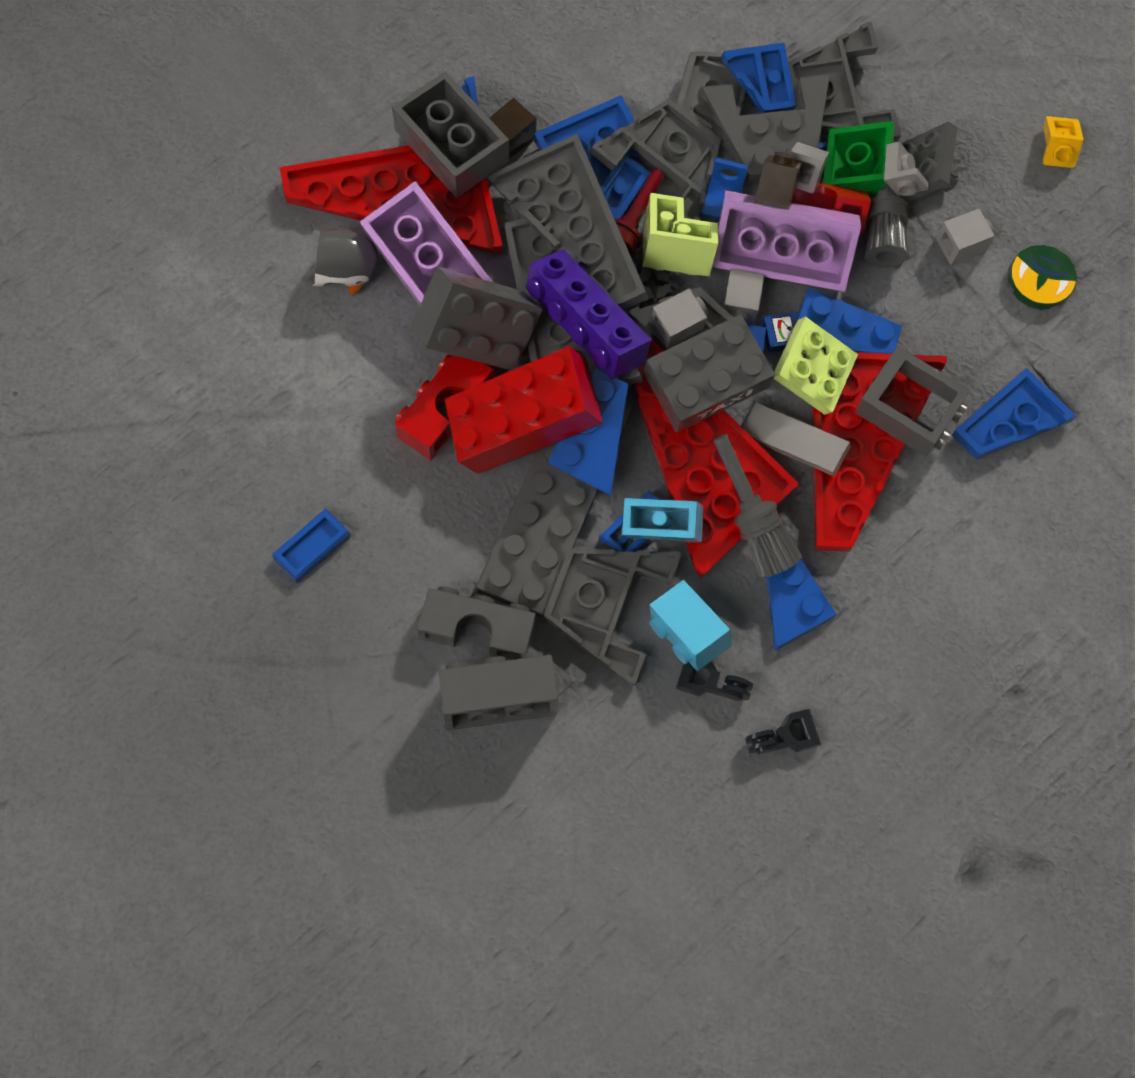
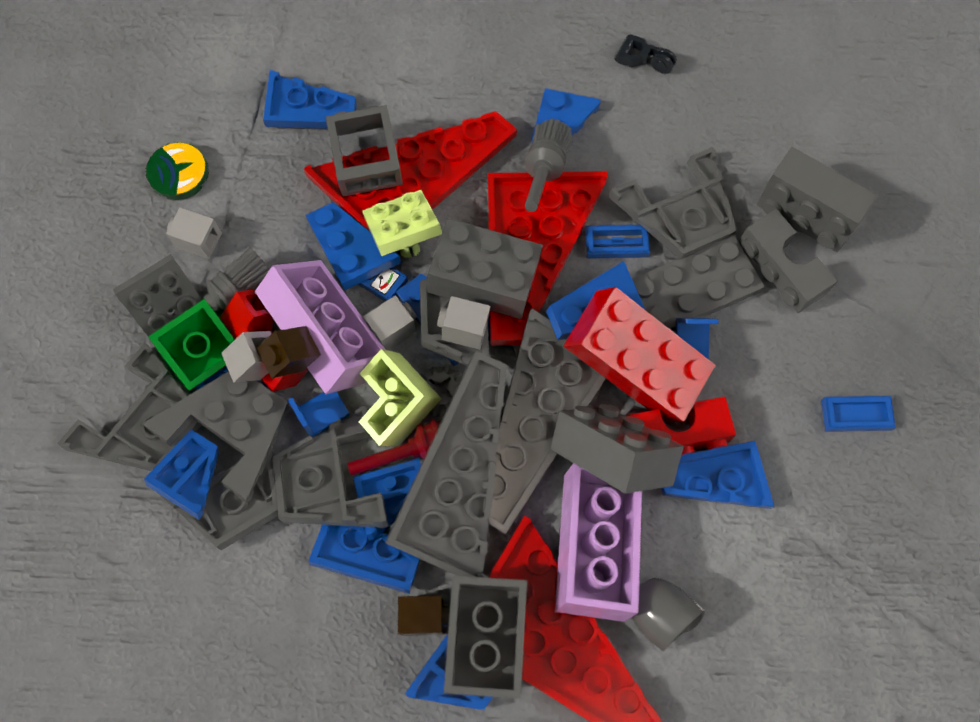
camera: 130 degrees left, 0 degrees up
(374, 403) = (723, 476): none -> blue wing
(498, 488) = (696, 332): none -> blue bracket
(588, 314) = (531, 378): dark purple brick -> none
(663, 520) = (610, 207): medium azure brick -> none
(689, 625) = (649, 146): medium azure brick -> none
(736, 687) = (649, 99): black piece -> none
(796, 439) = (458, 188): light grey tile -> none
(901, 171) = (184, 298): light grey bracket -> none
(1063, 141) = (43, 241): yellow bracket -> none

